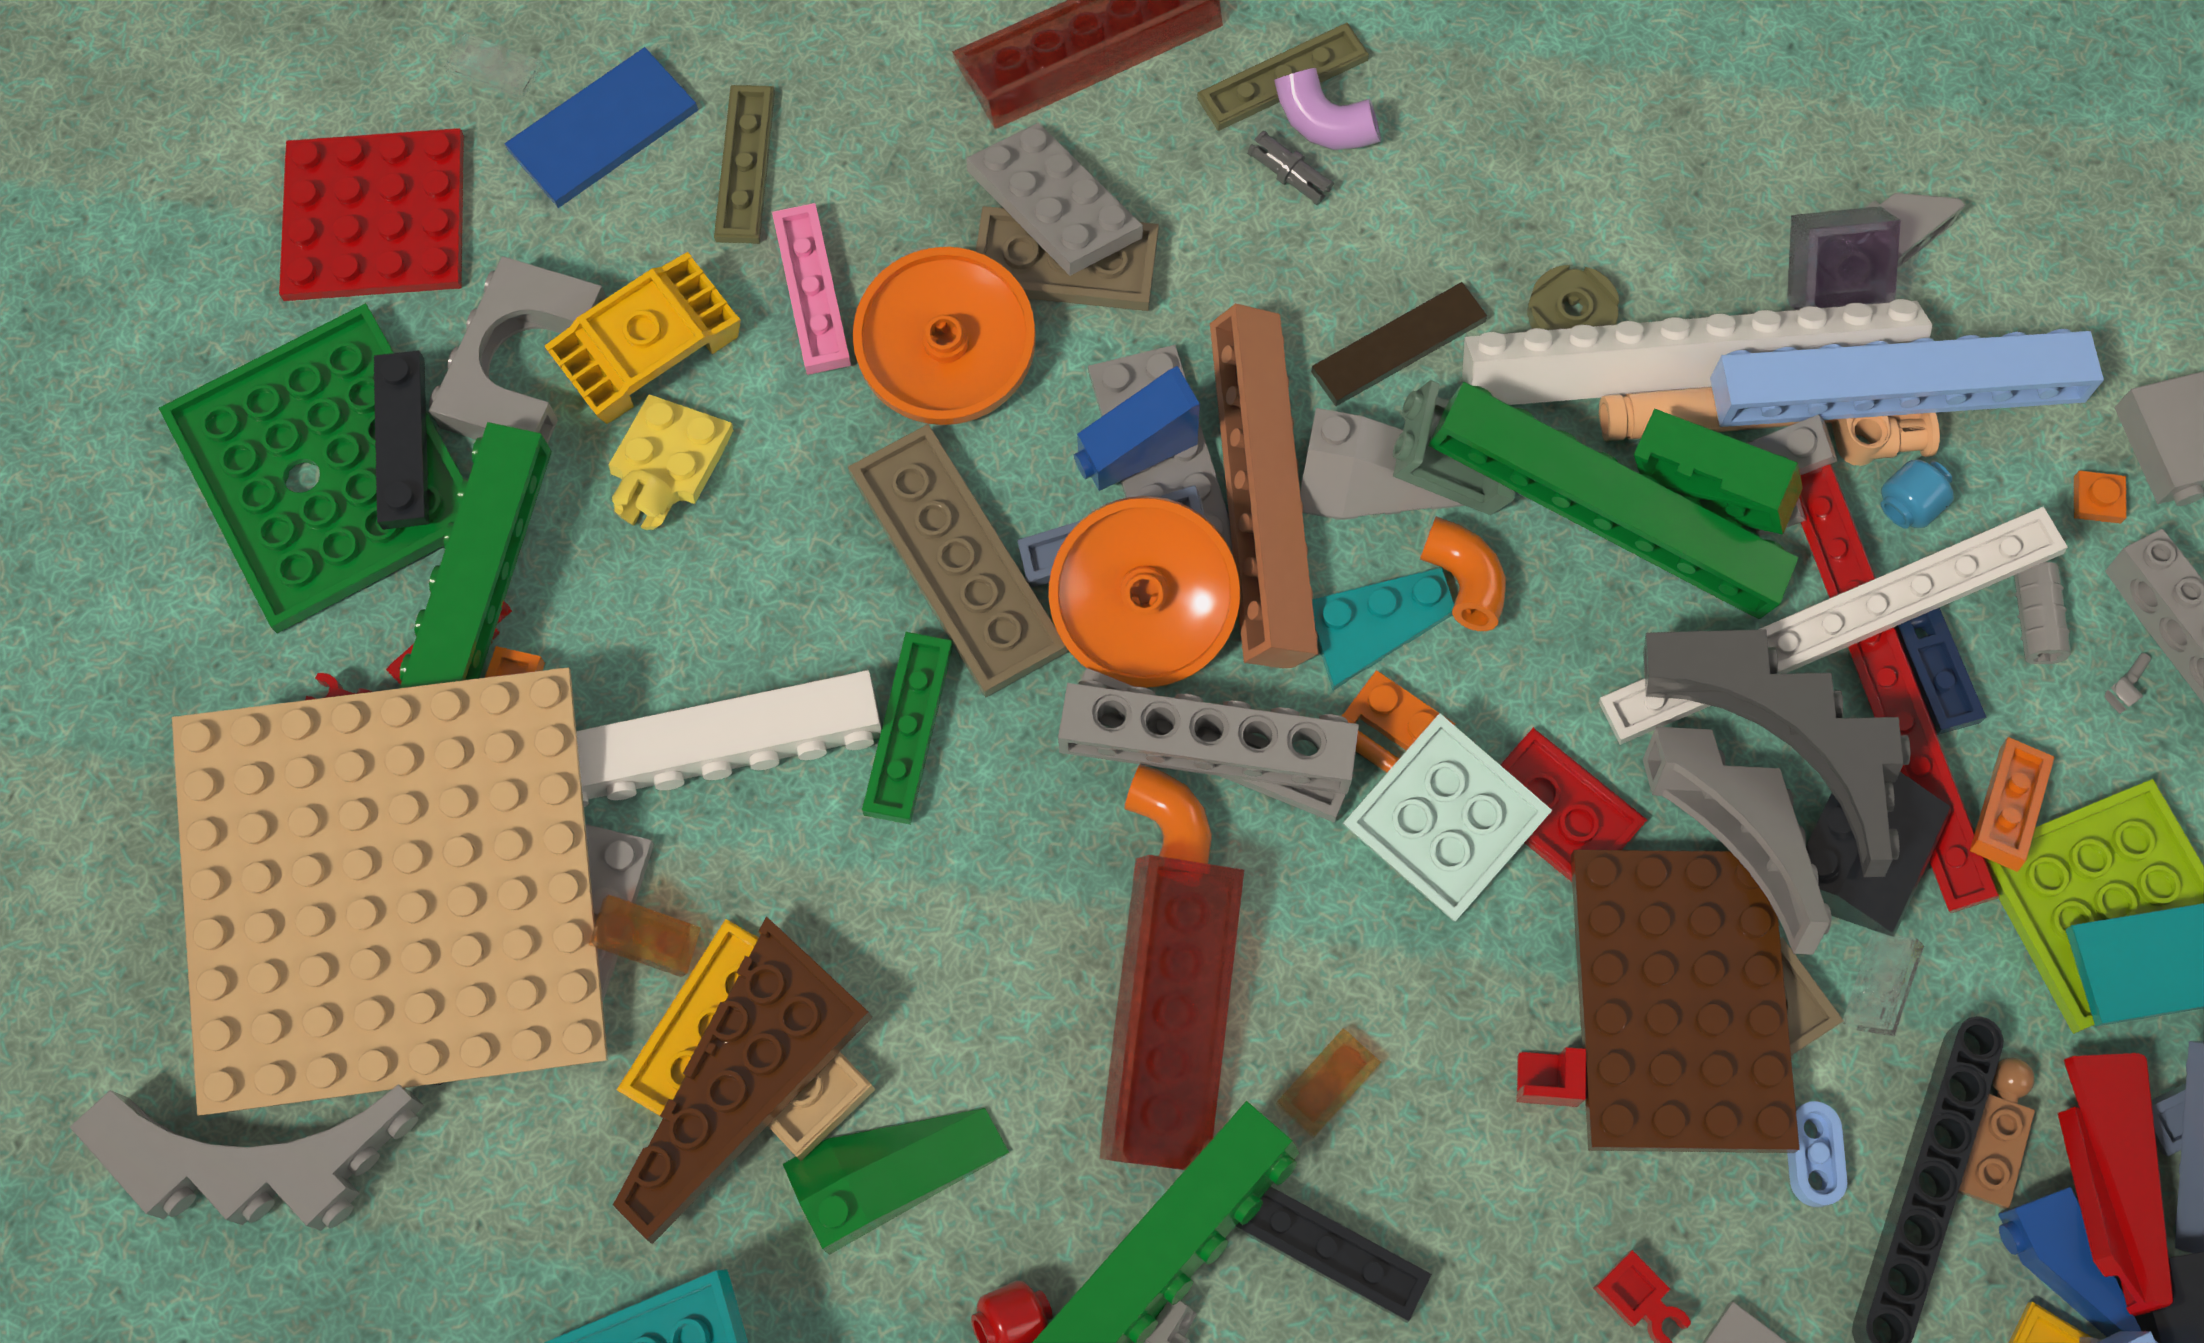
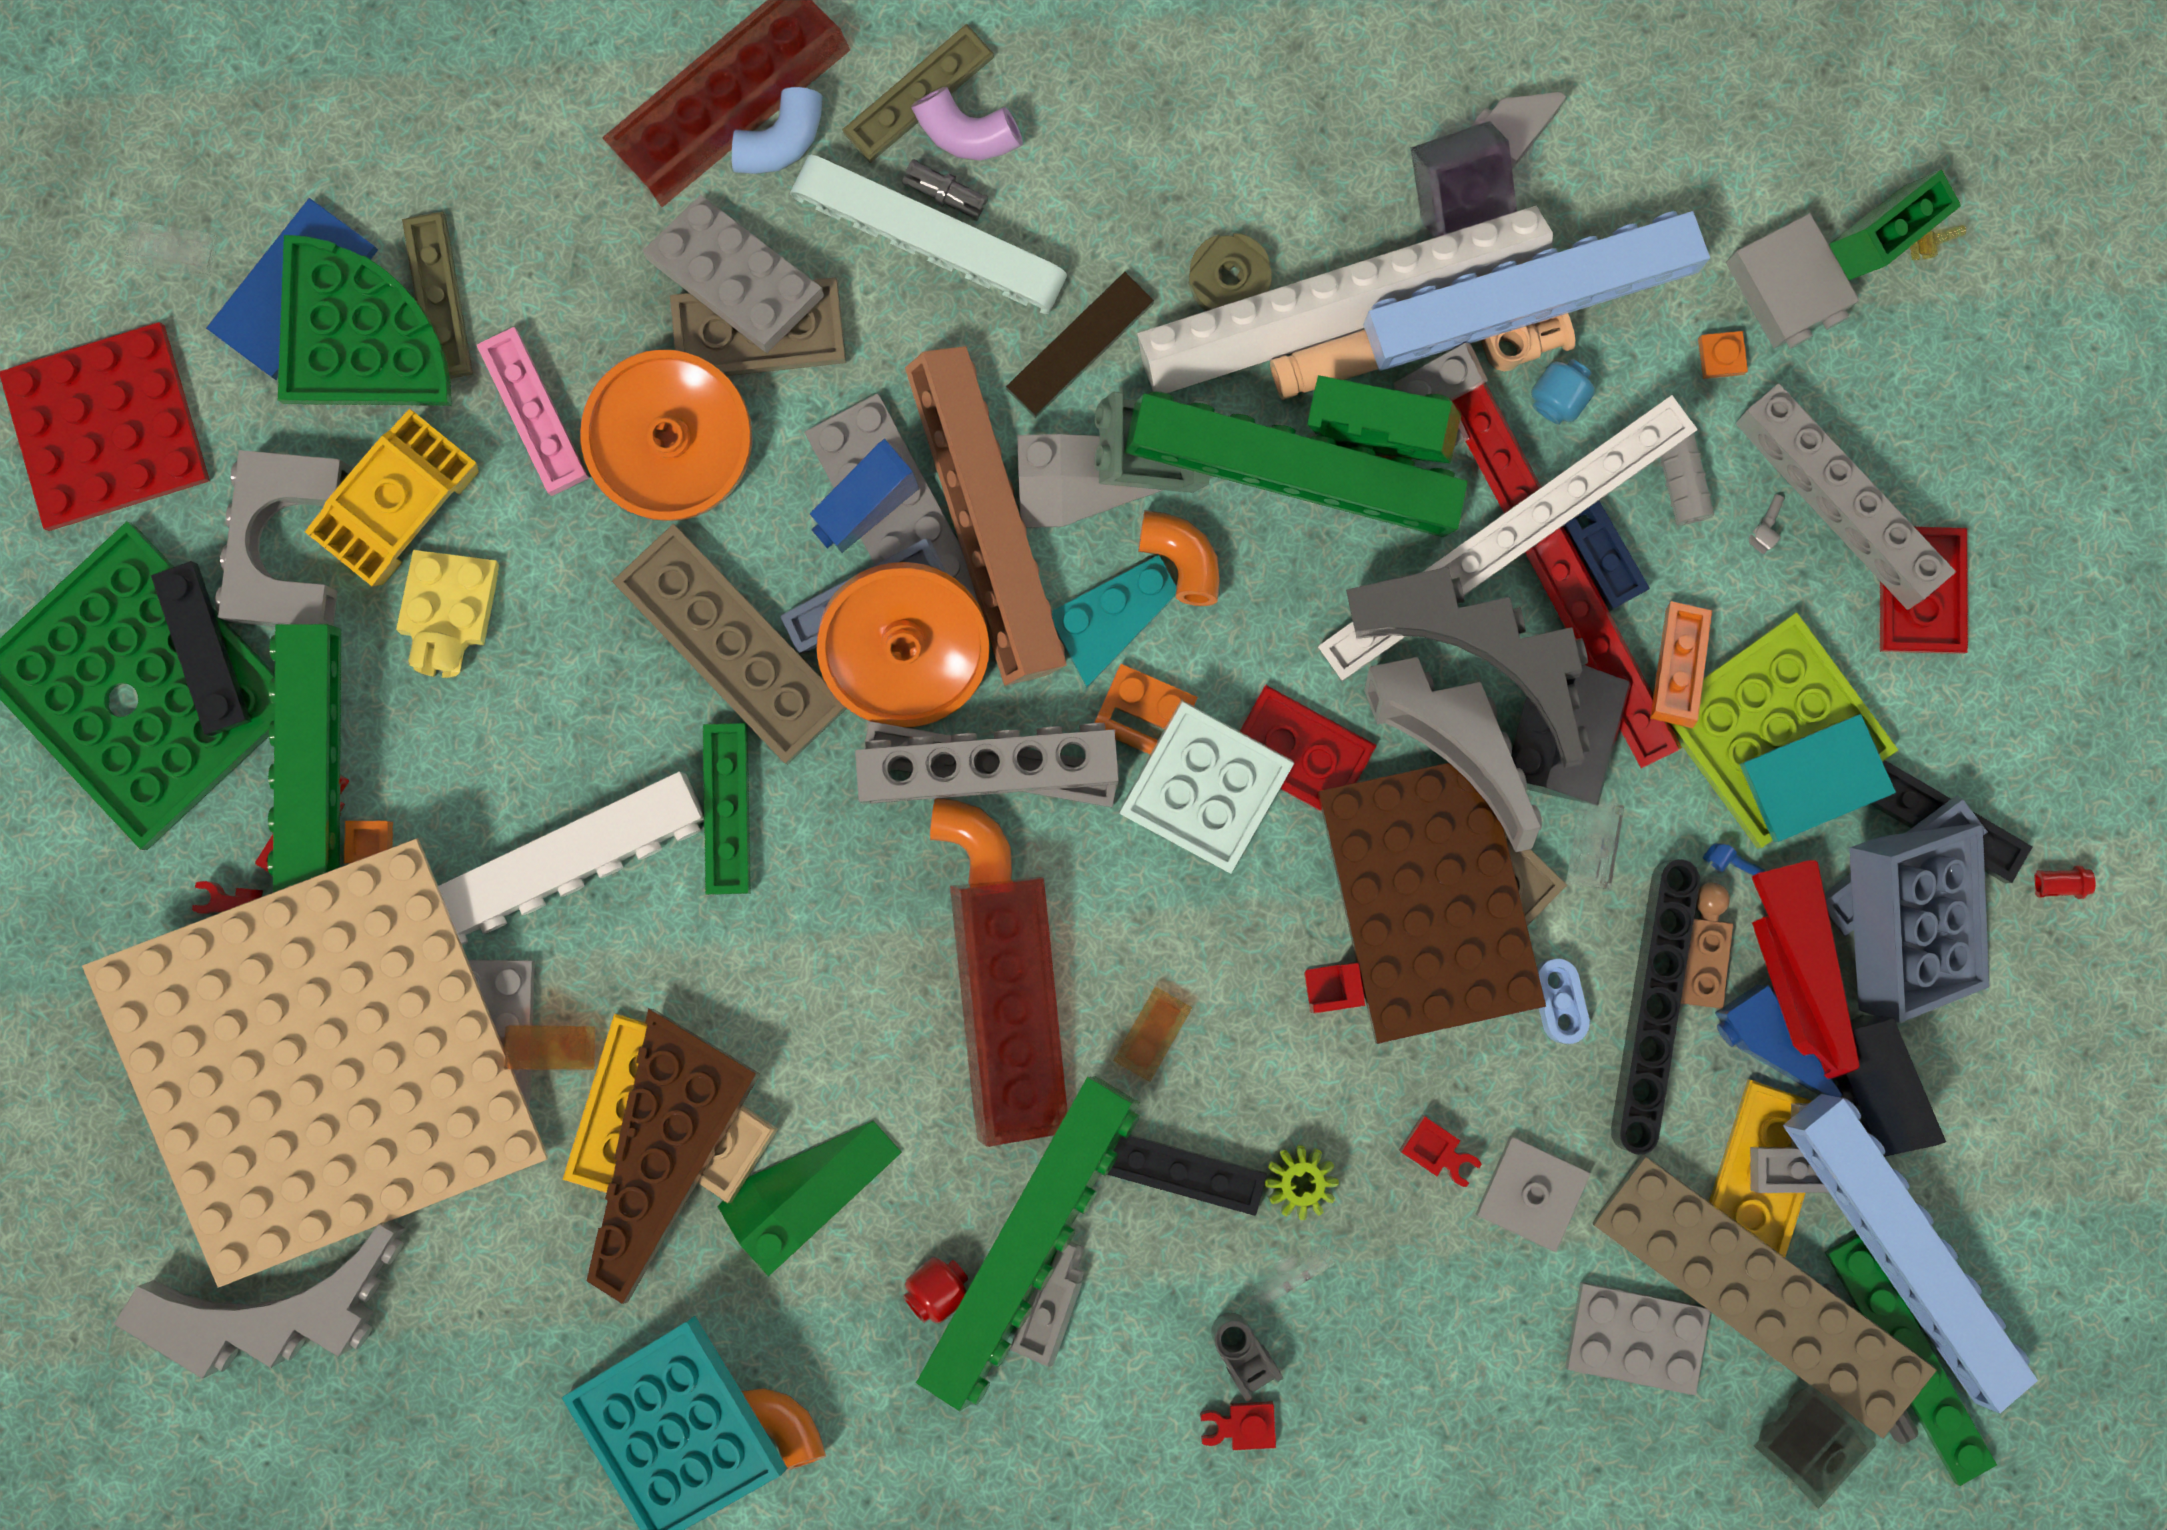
camera: 15 degrees left, 15 degrees up
(651, 175) = (353, 333): none -> green plate
(1136, 89) = (784, 141): none -> light blue cylinder
(1267, 204) = (929, 232): none -> light aqua beam
(1474, 1313) = (1299, 1167): none -> lime gear
(2034, 1031) = (1724, 855): none -> blue hand

